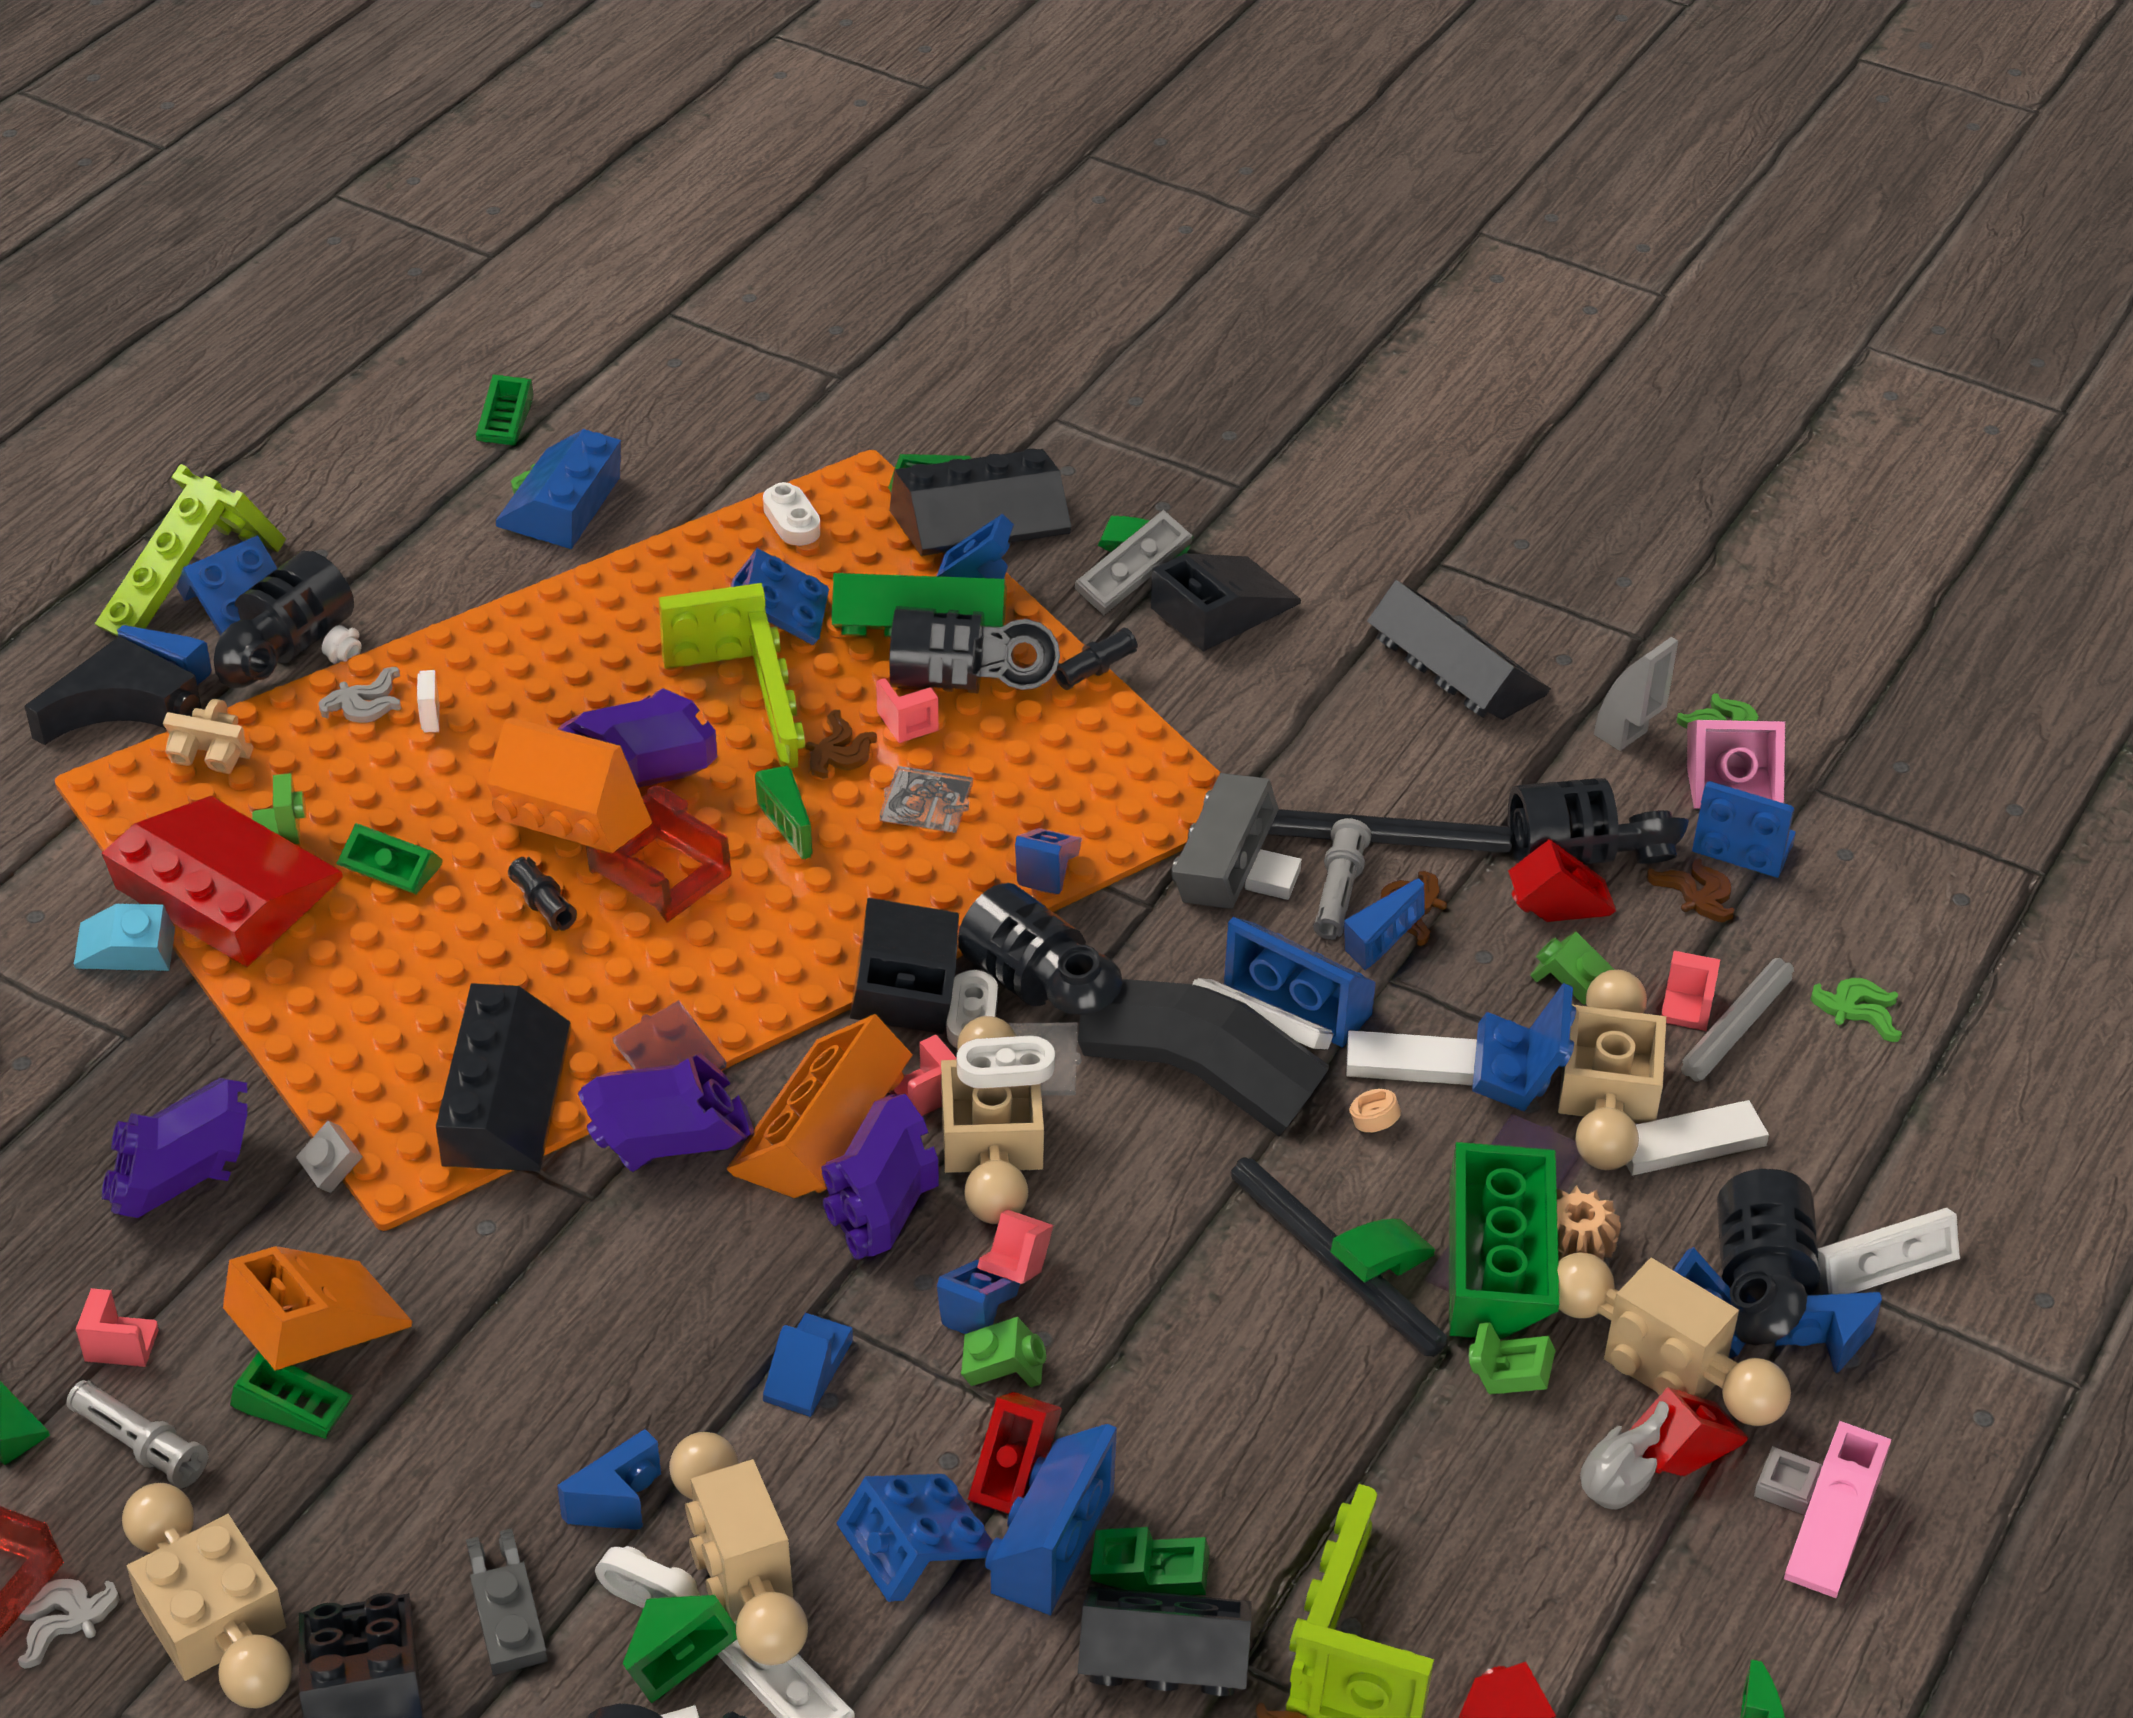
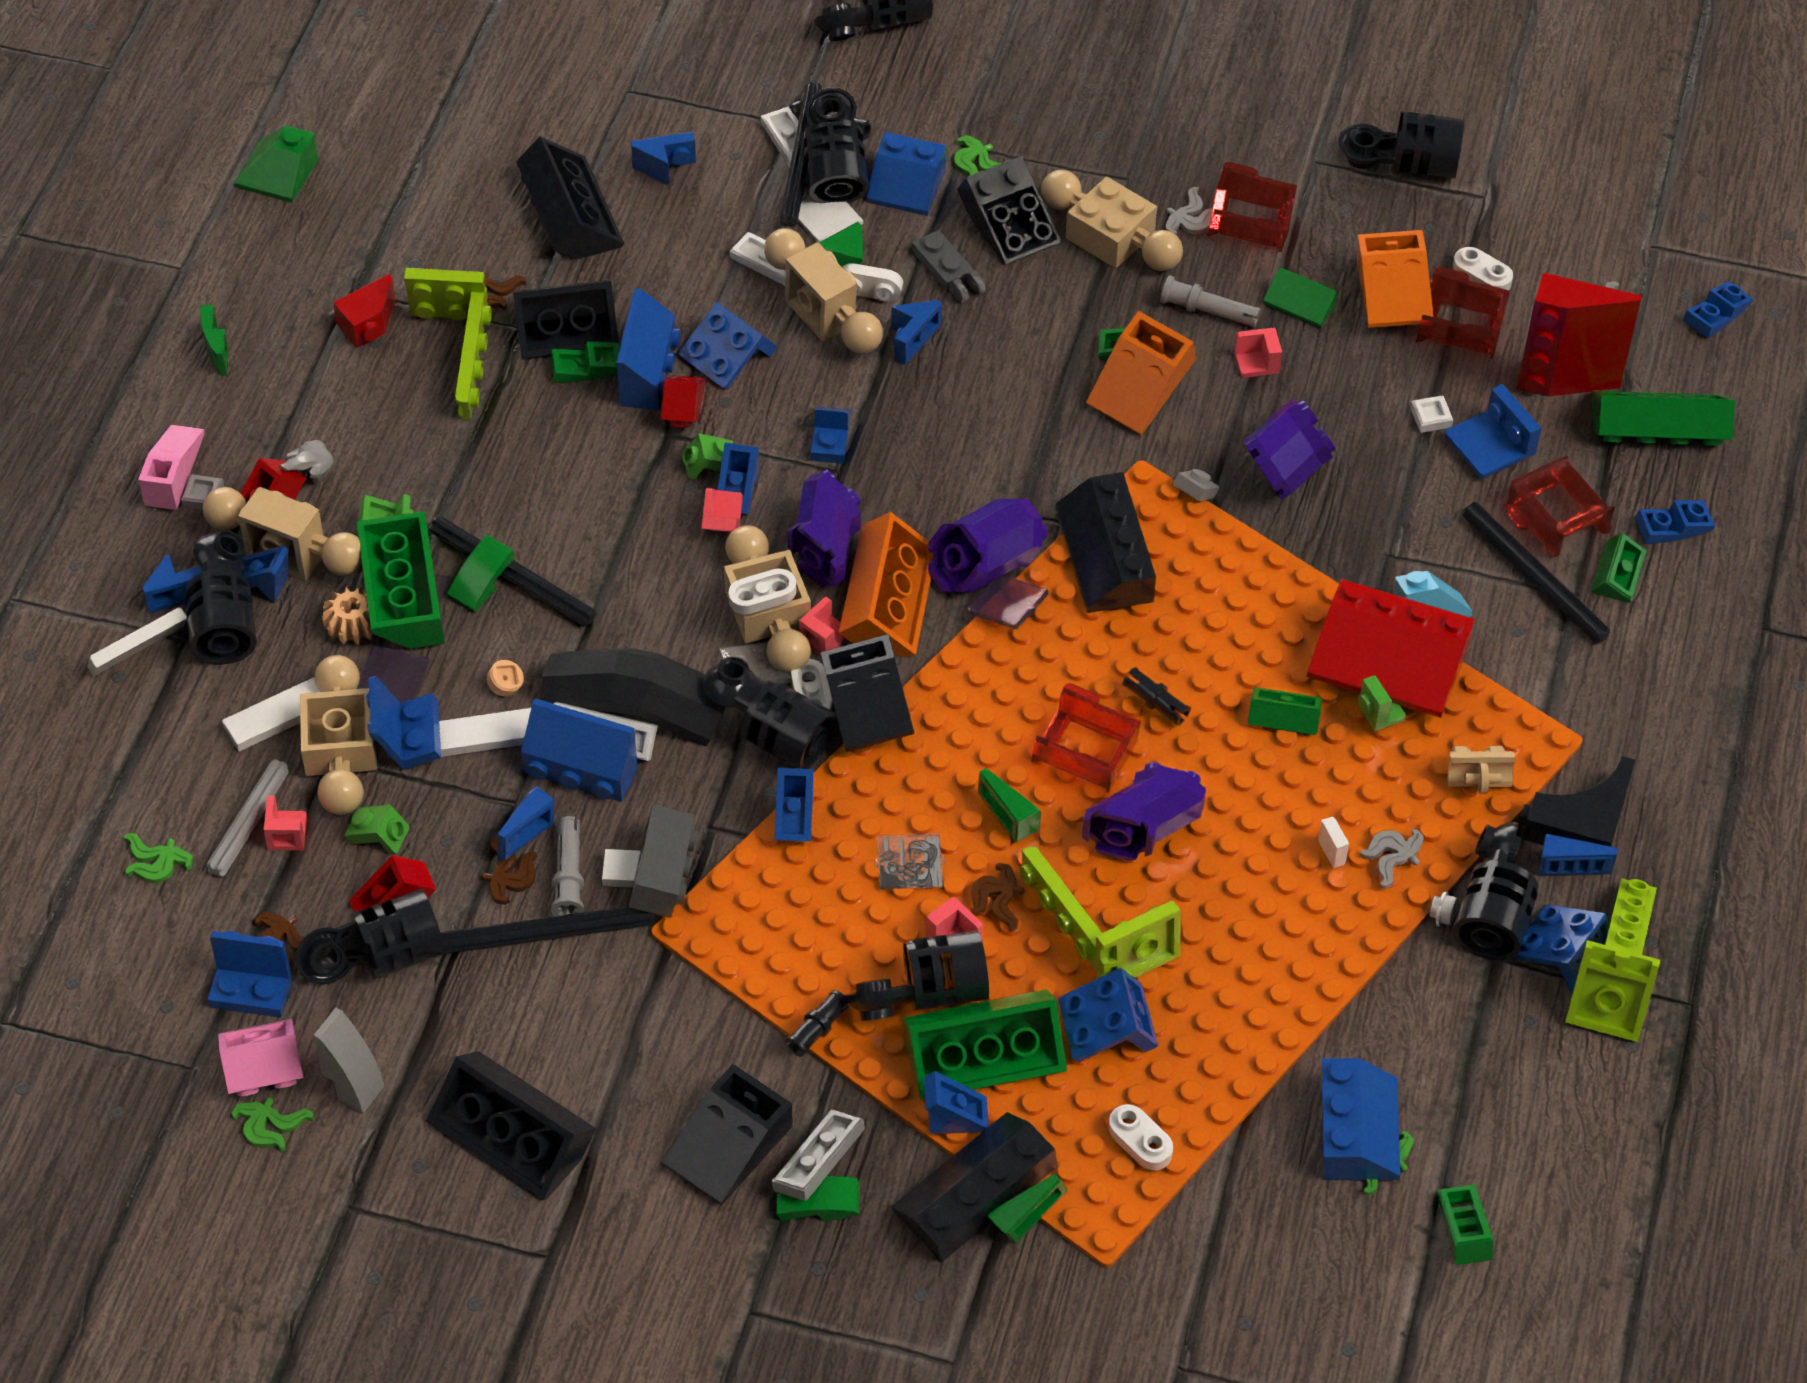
camera: 165 degrees right, 10 degrees up
(565, 786) = (1164, 734): orange slope -> none

